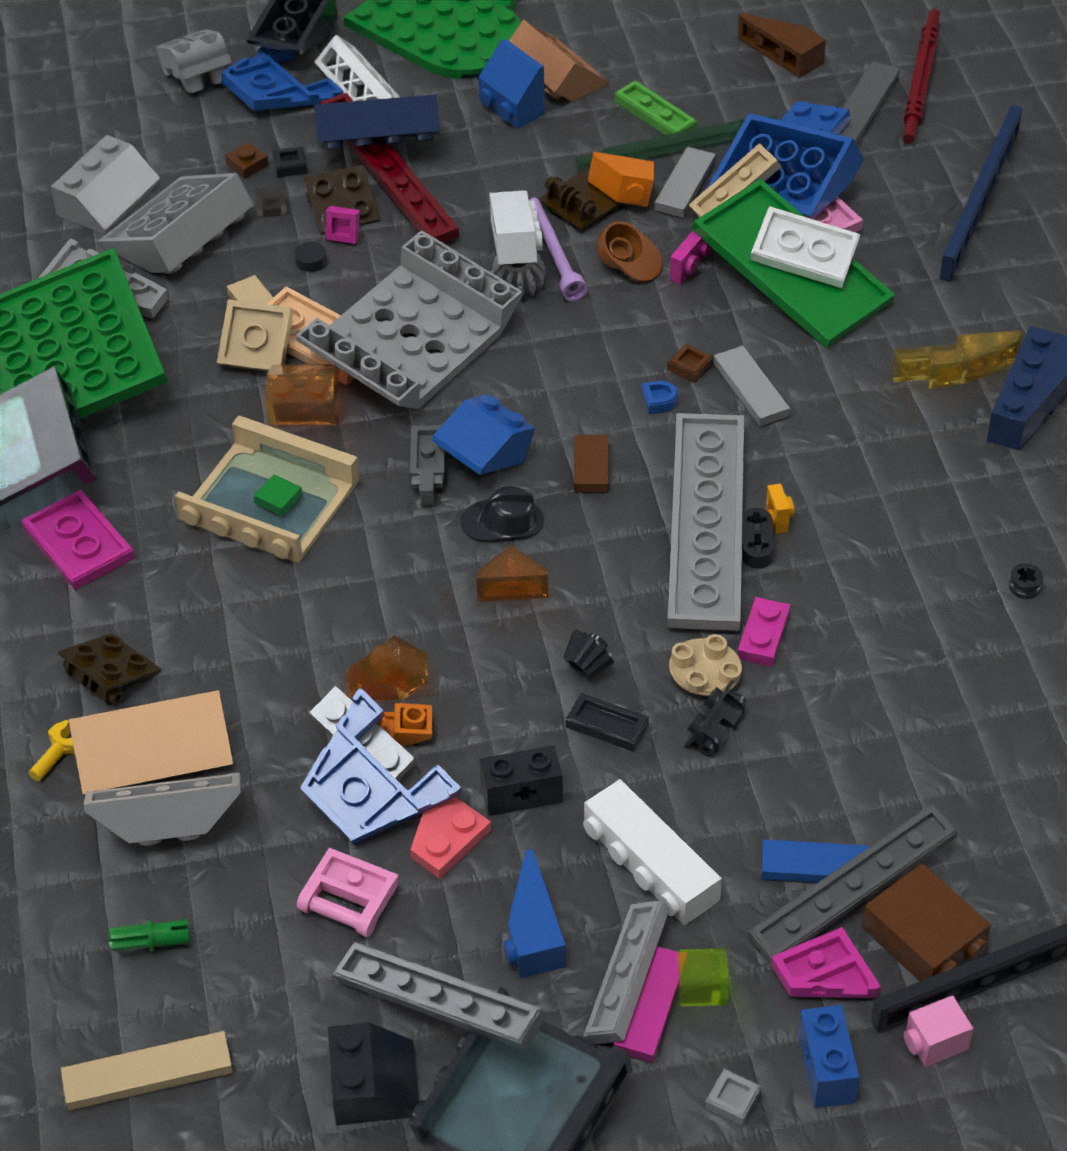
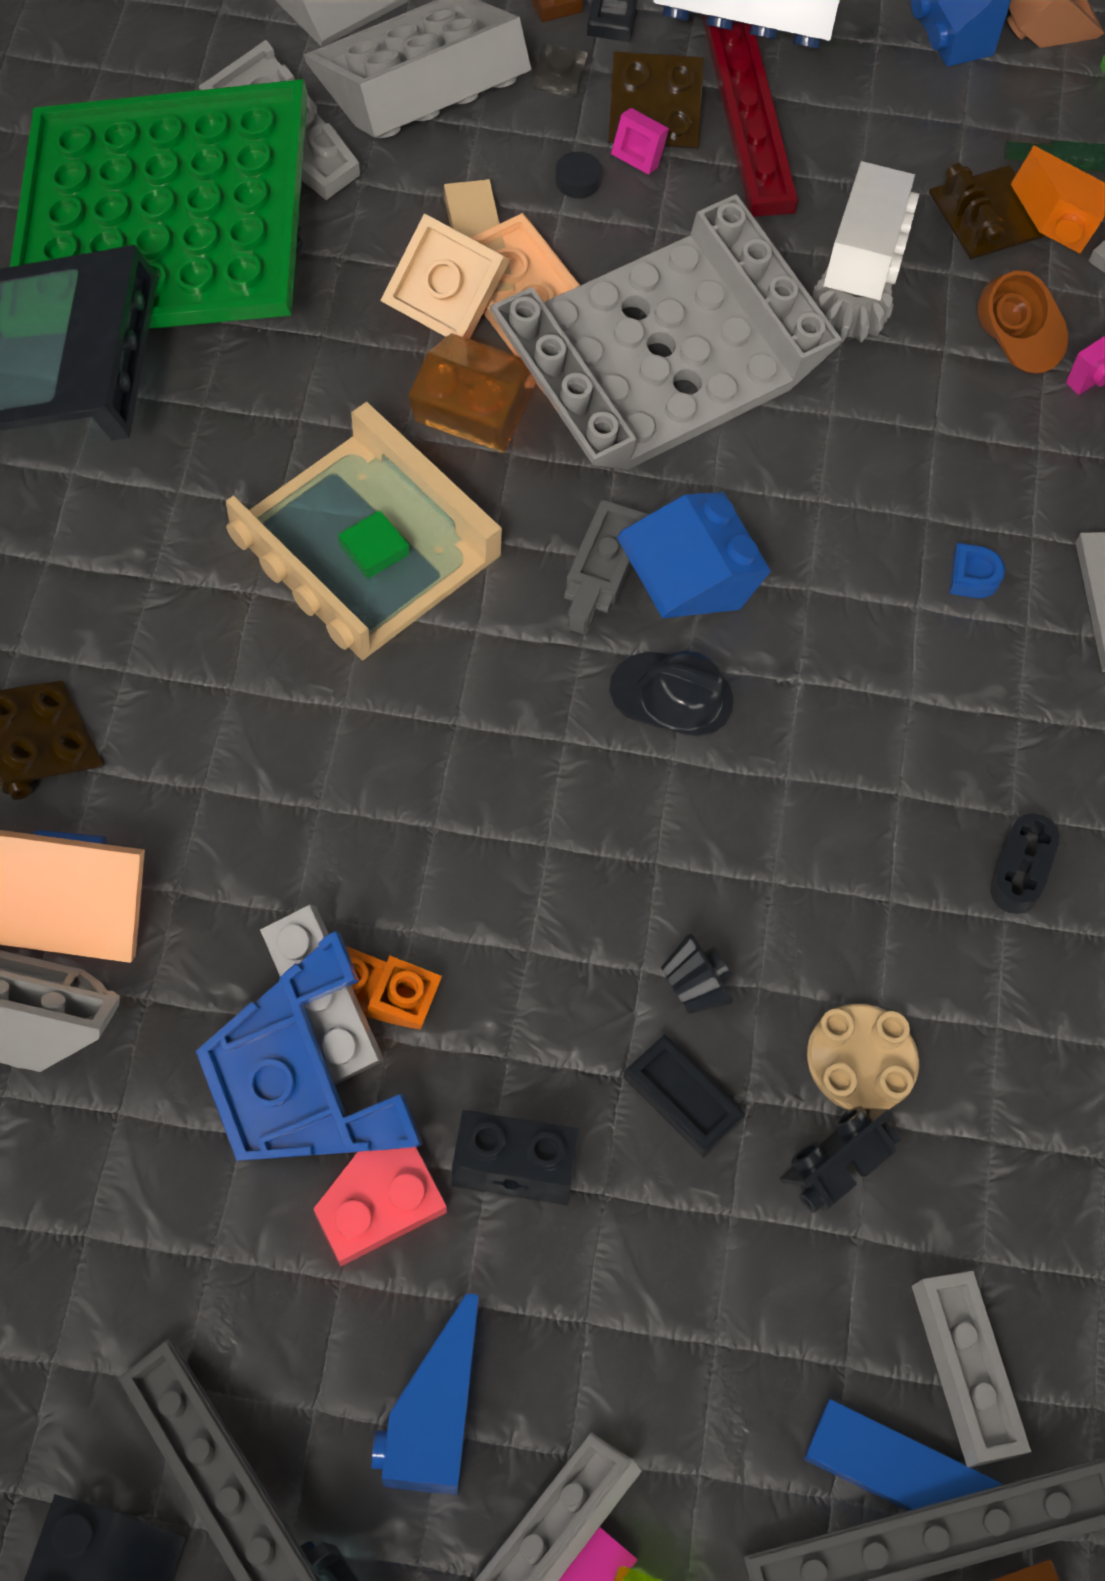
camera: 15 degrees right, 15 degrees up
(77, 539) = (79, 514): dark pink tile -> none
(353, 881) = (213, 1233): bright pink plate -> none
(389, 671) = (402, 898): clear orange slope -> none
(512, 577) = (641, 801): clear orange slope -> none
(571, 284) = (922, 345): lavender piece -> none
(591, 463) = (833, 648): reddish brown tile -> none
(651, 852) = (656, 1359): white brick -> none
(690, 363) = (1041, 531): reddish brown tile -> none
(707, 523) = (960, 814): light grey plate -> none
(763, 631) = (973, 1028): dark pink plate -> none
(779, 507) = (1076, 828): light orange plate -> none
(837, 796) = (970, 1369): none -> light grey plate

